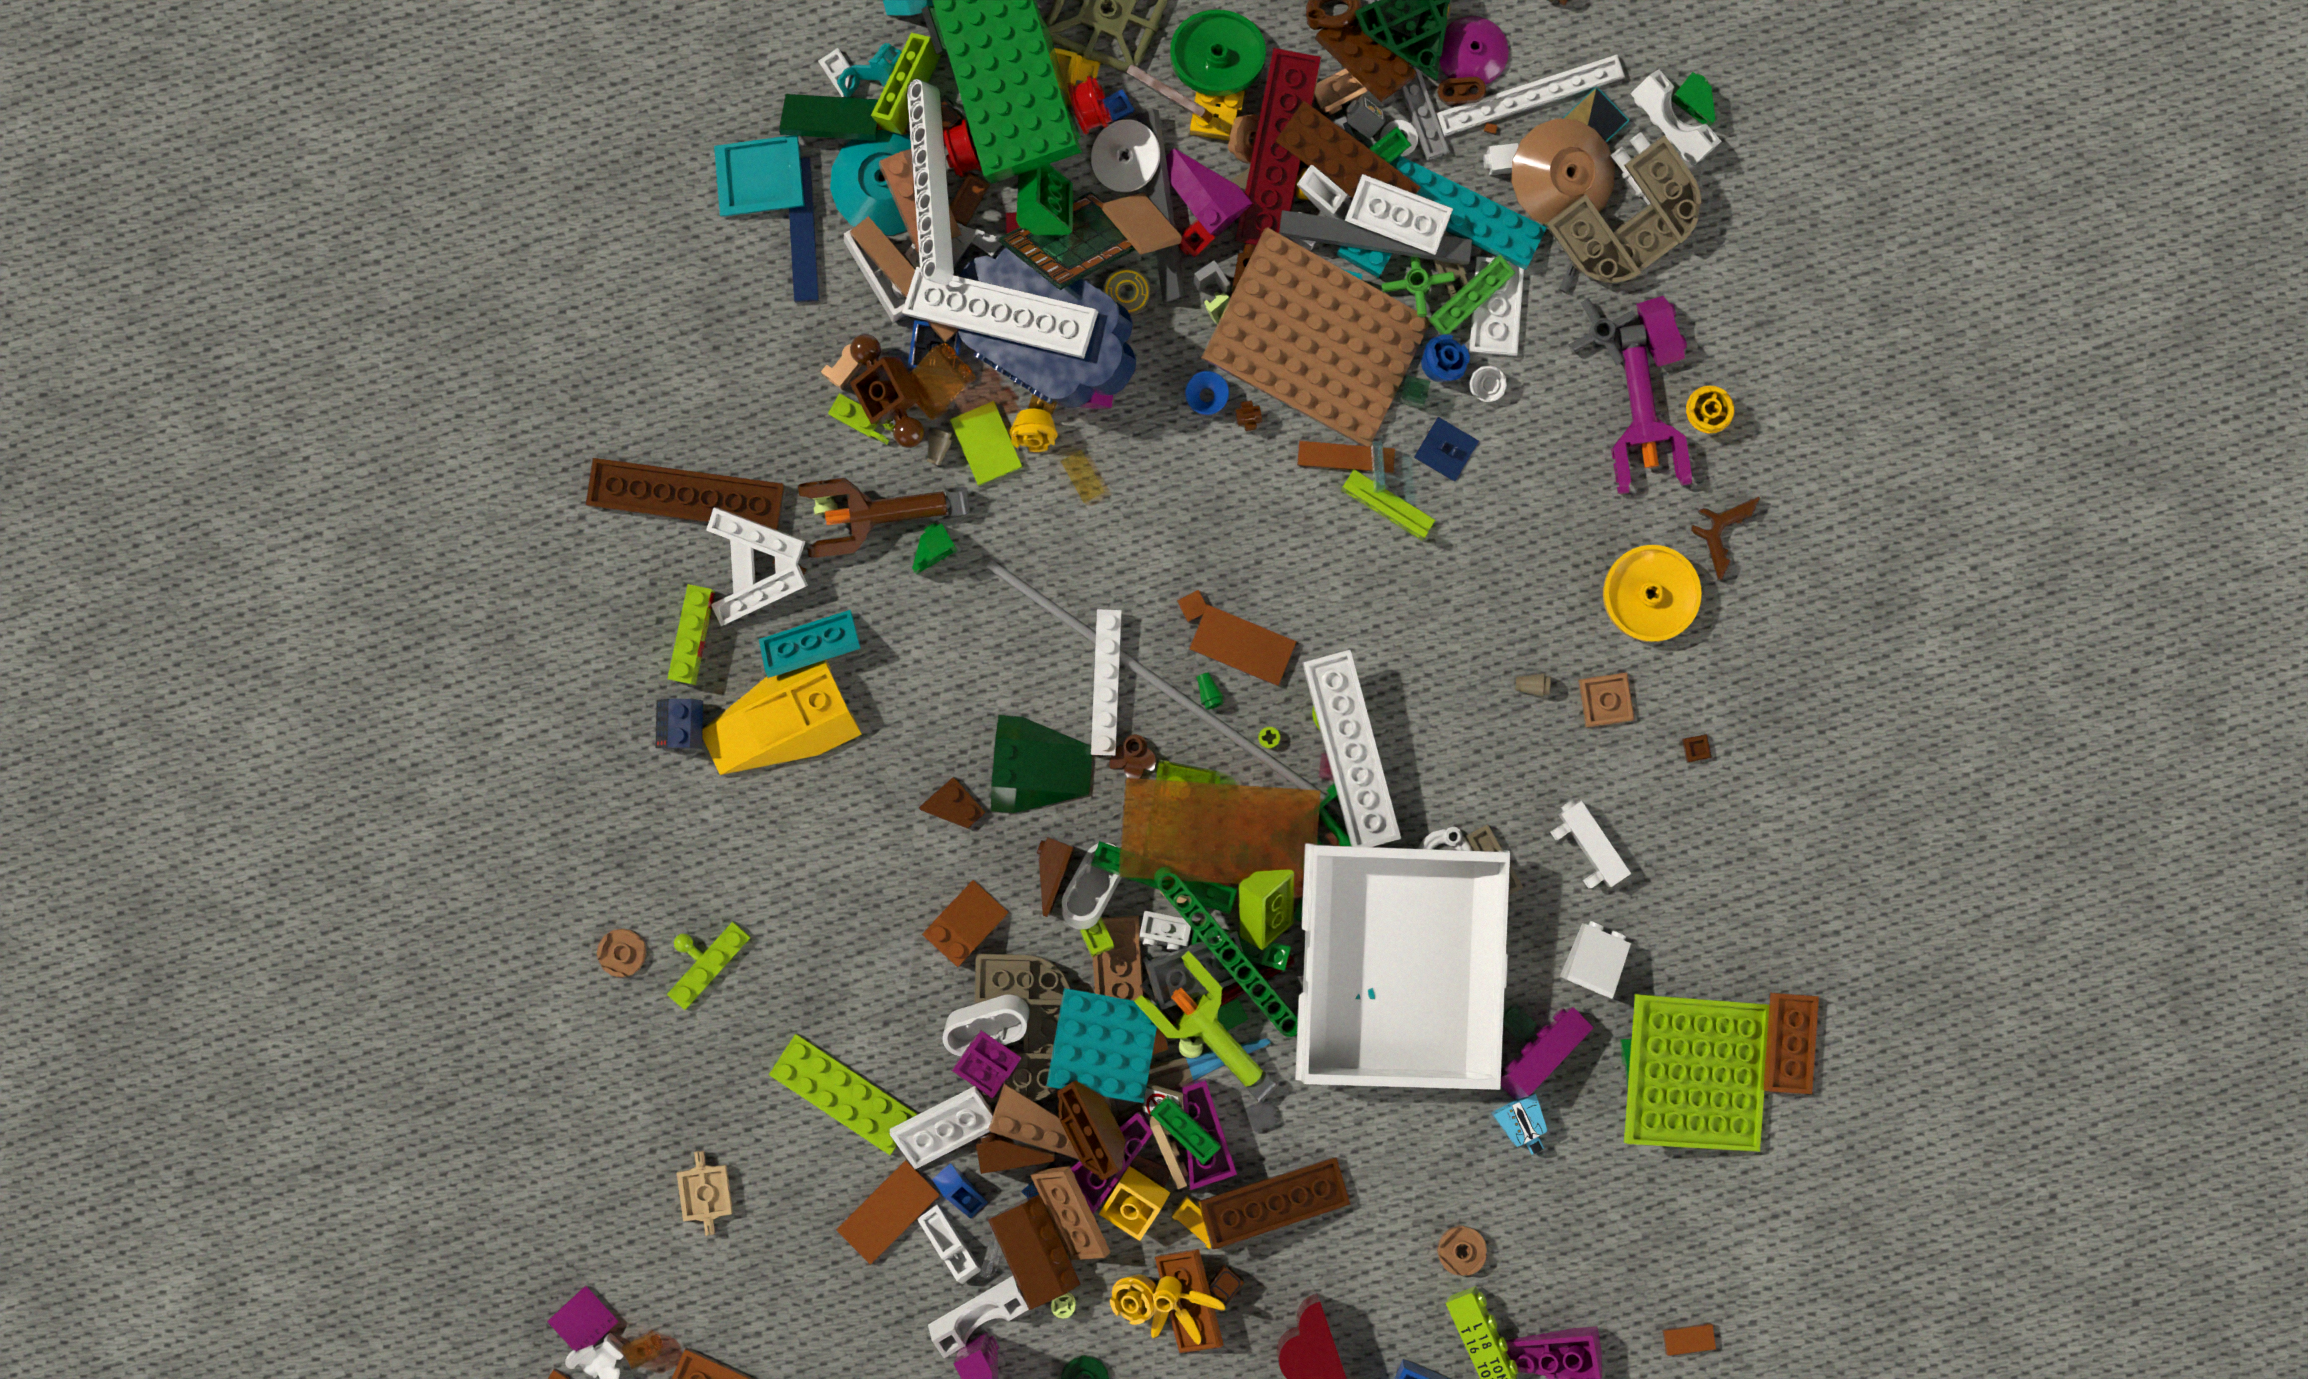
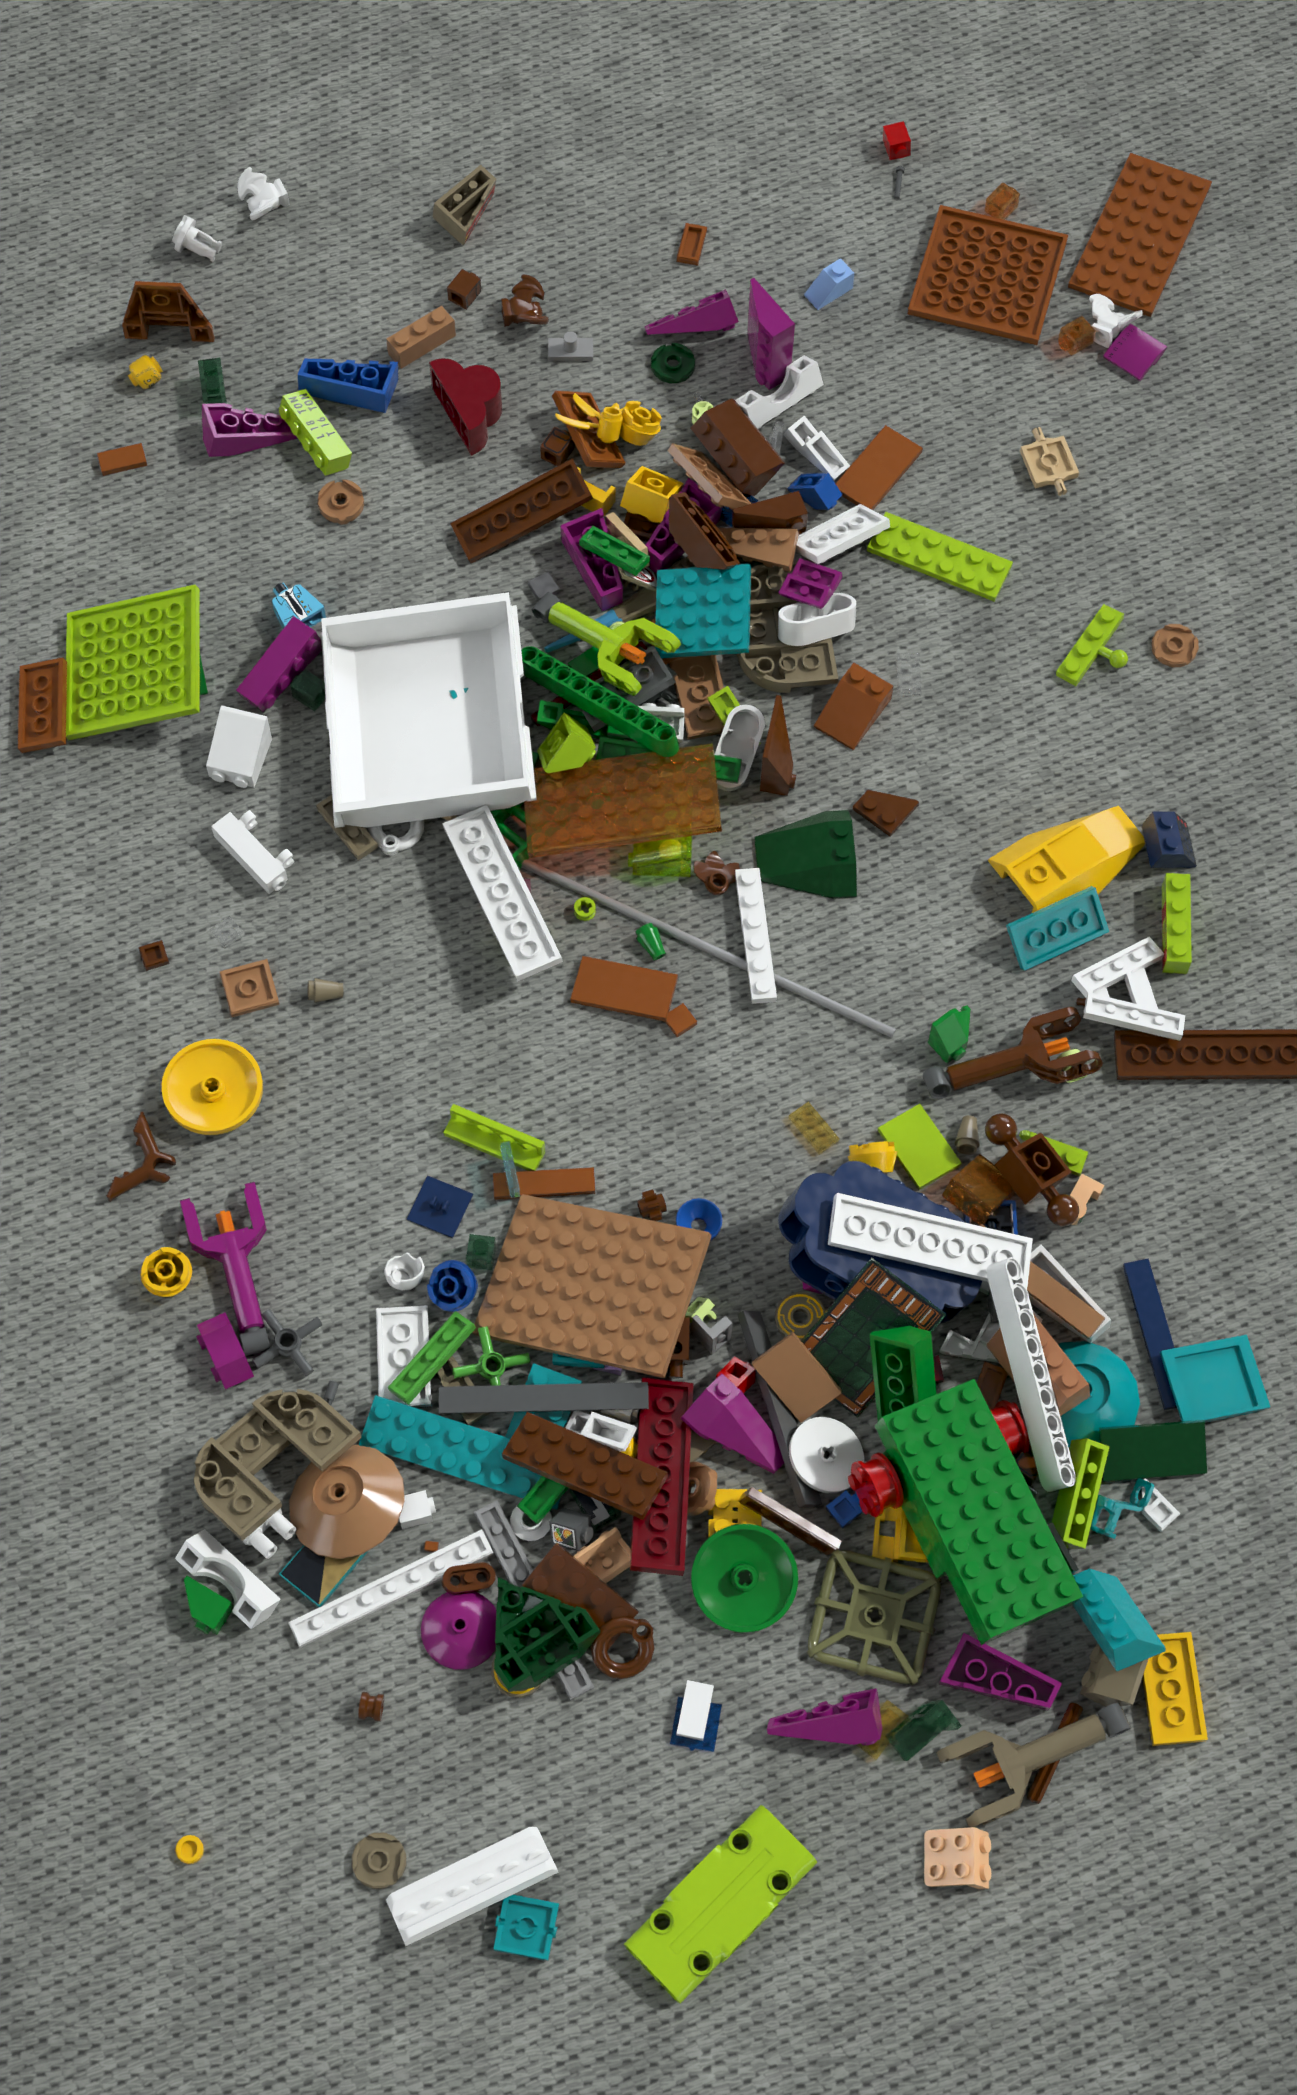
camera: 170 degrees right, 20 degrees down
(1398, 214) = (522, 1417): white tile -> none

